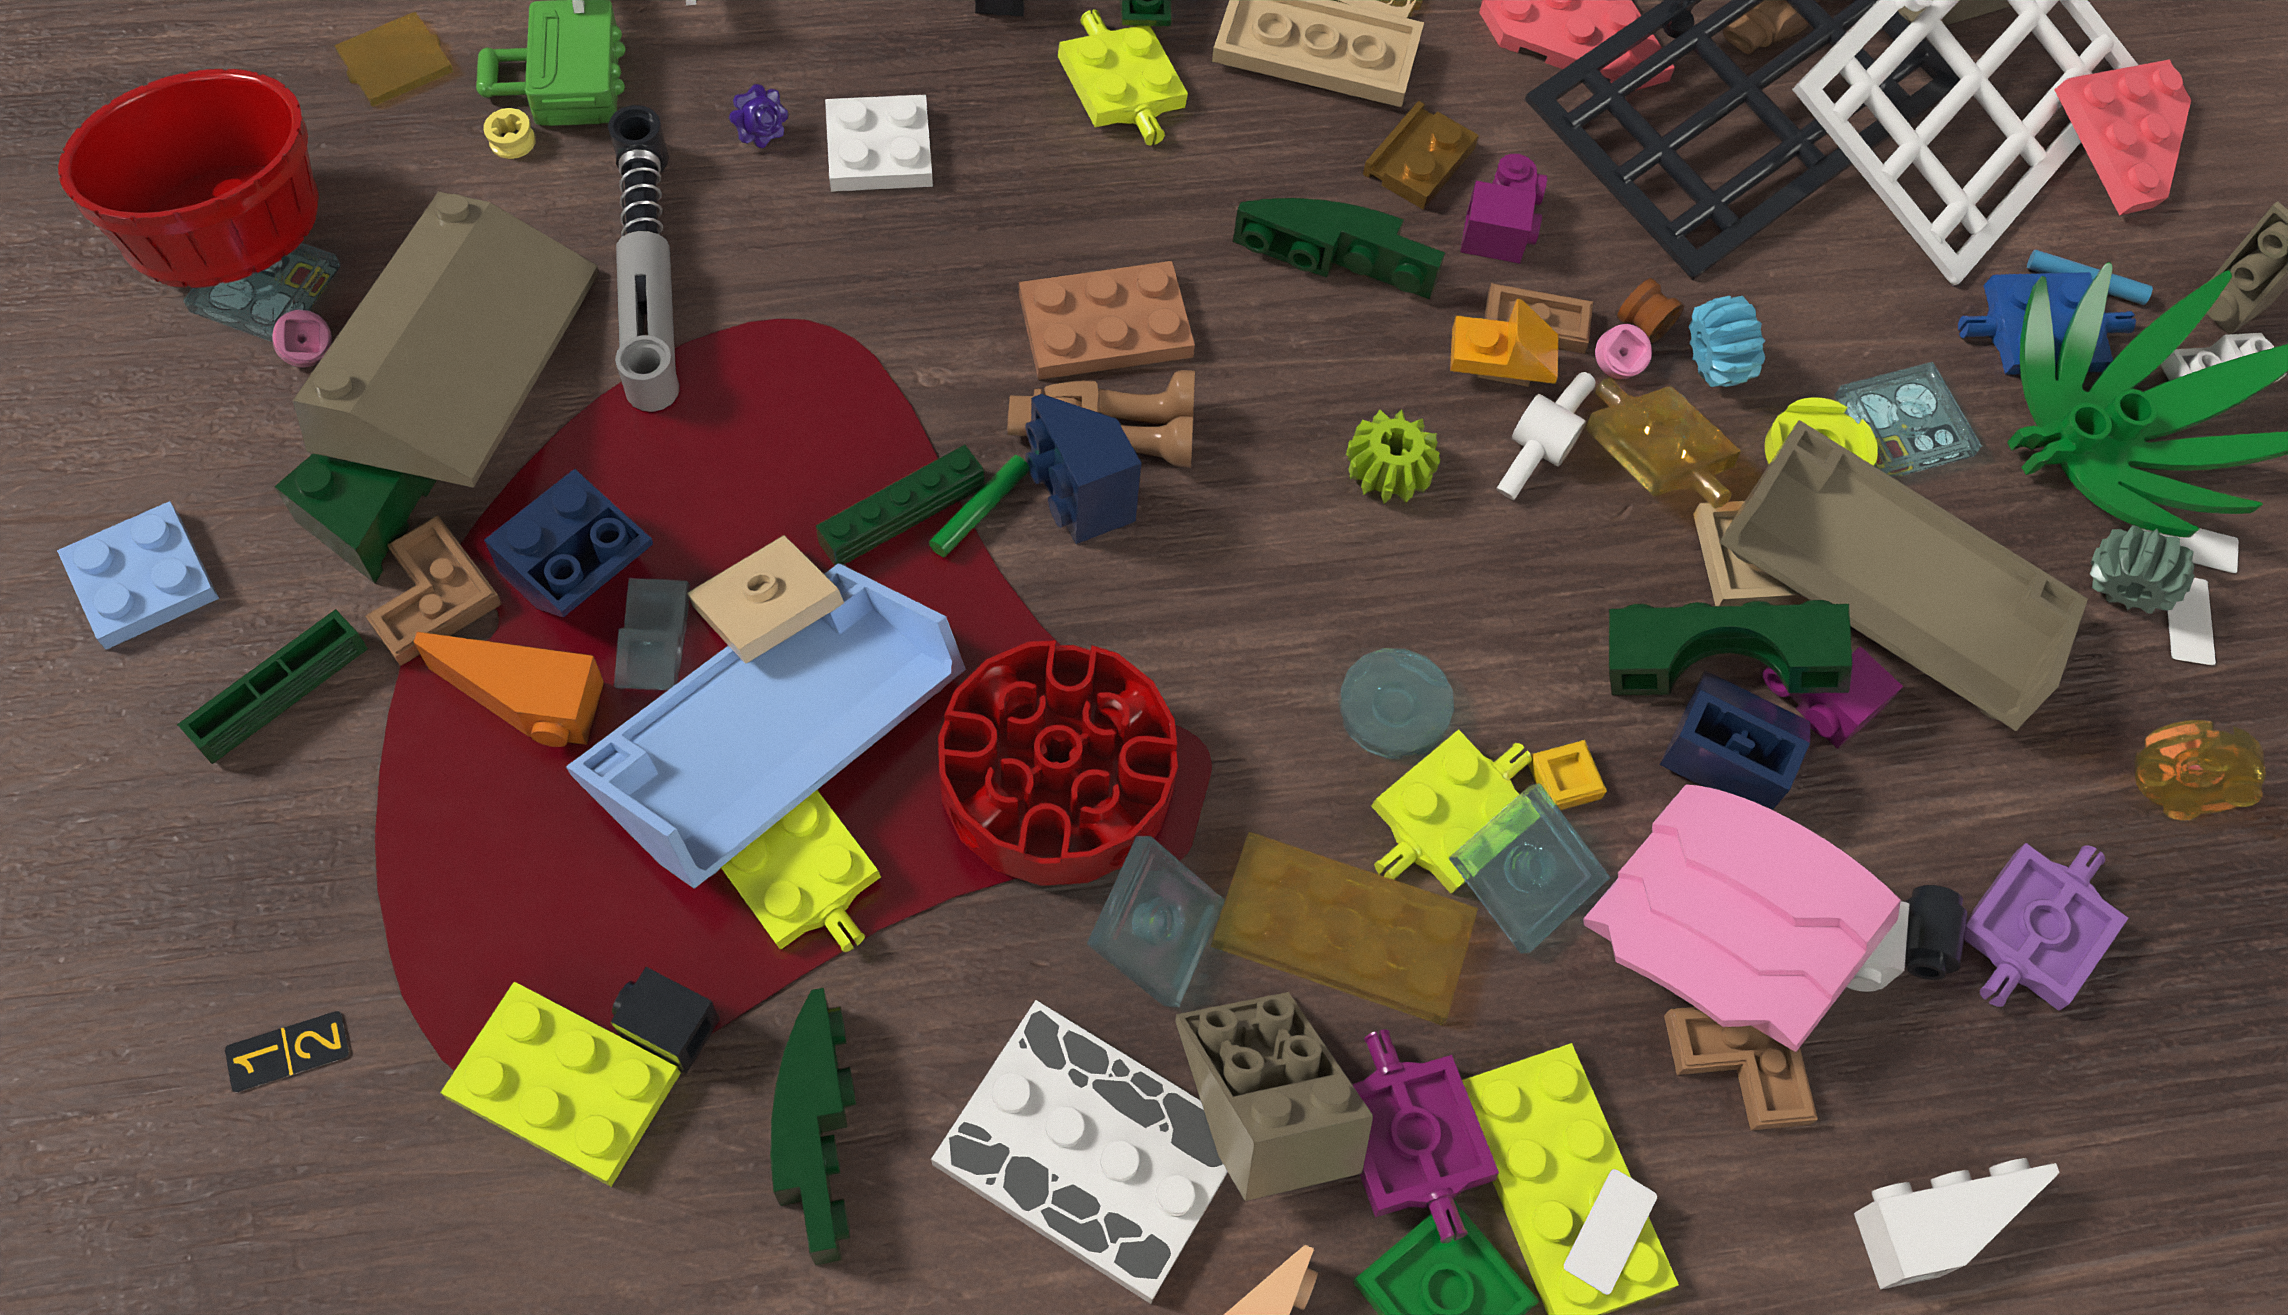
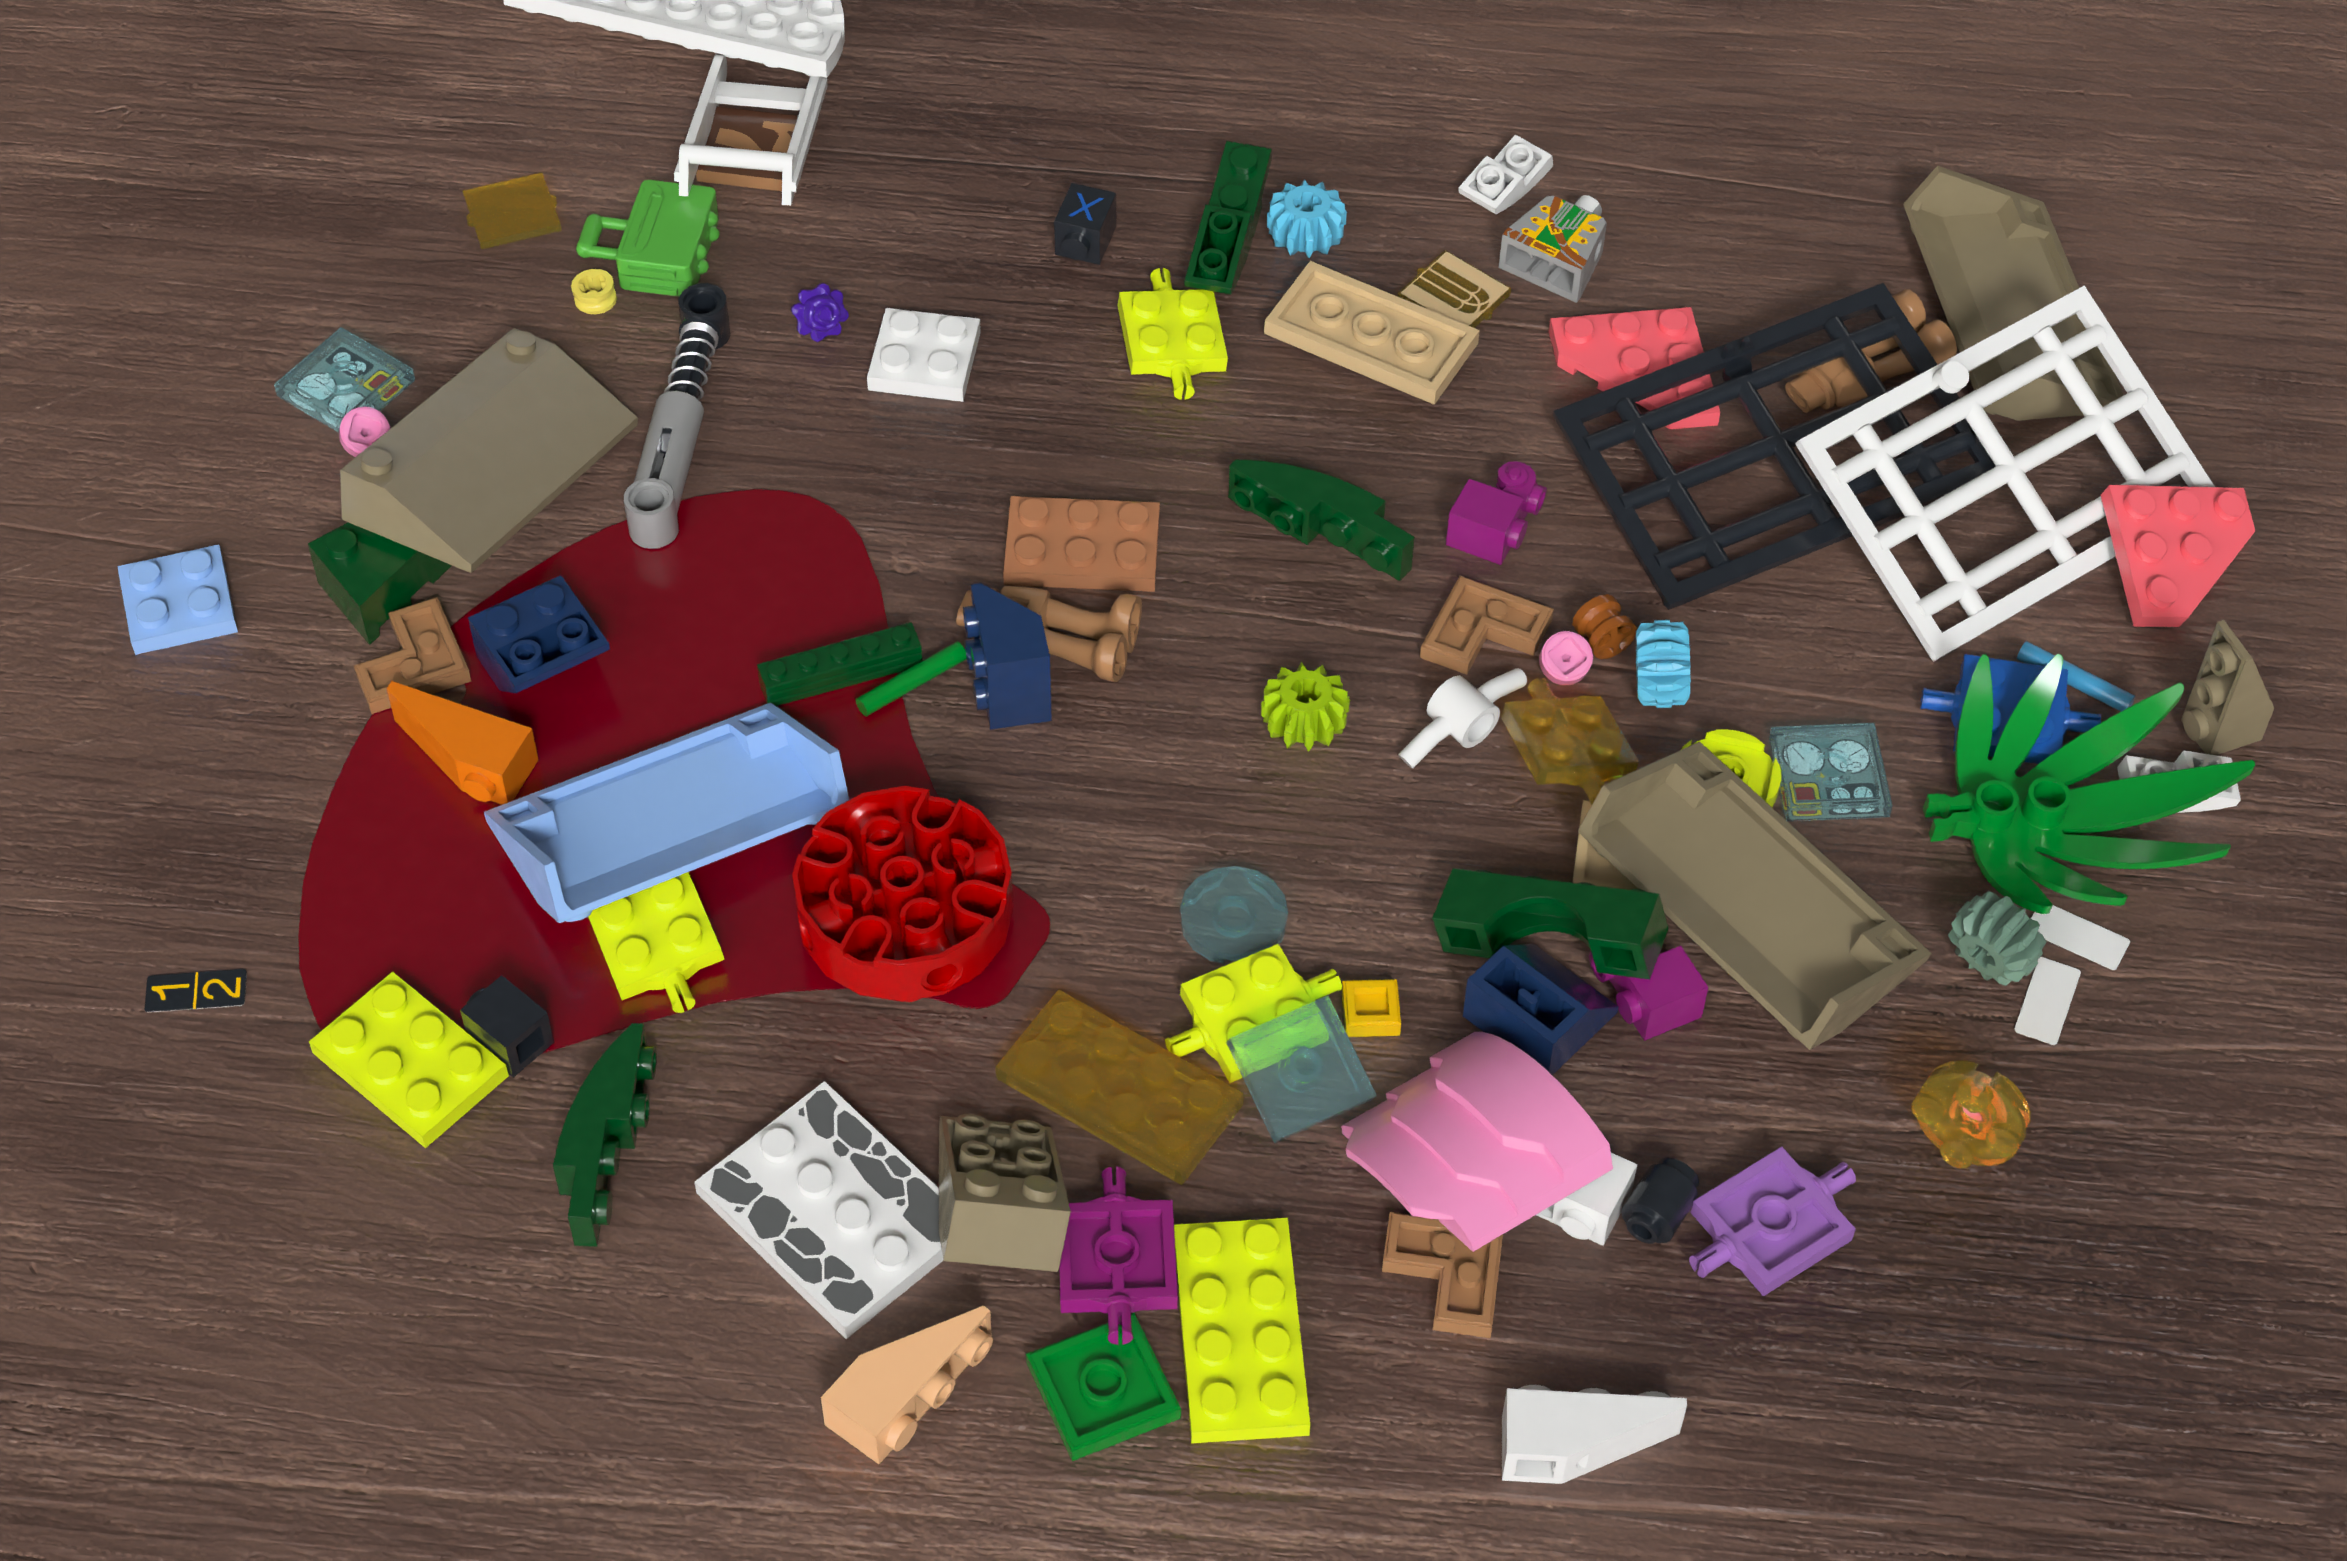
camera: 20 degrees right, 10 degrees down
(196, 176) = (314, 280): red piece -> none
(273, 686) = (263, 706): dark green piece -> none
(652, 634) = (592, 728): clear light blue slope -> none
(765, 599) = (694, 715): tan plate -> none
(1156, 921) = (946, 1037): clear light blue plate -> none
(1421, 155) = (1437, 451): pearl gold plate -> none
(1513, 349) = (1451, 633): light orange slope -> none
(1610, 1231) = (1261, 1364): white sticker -> none

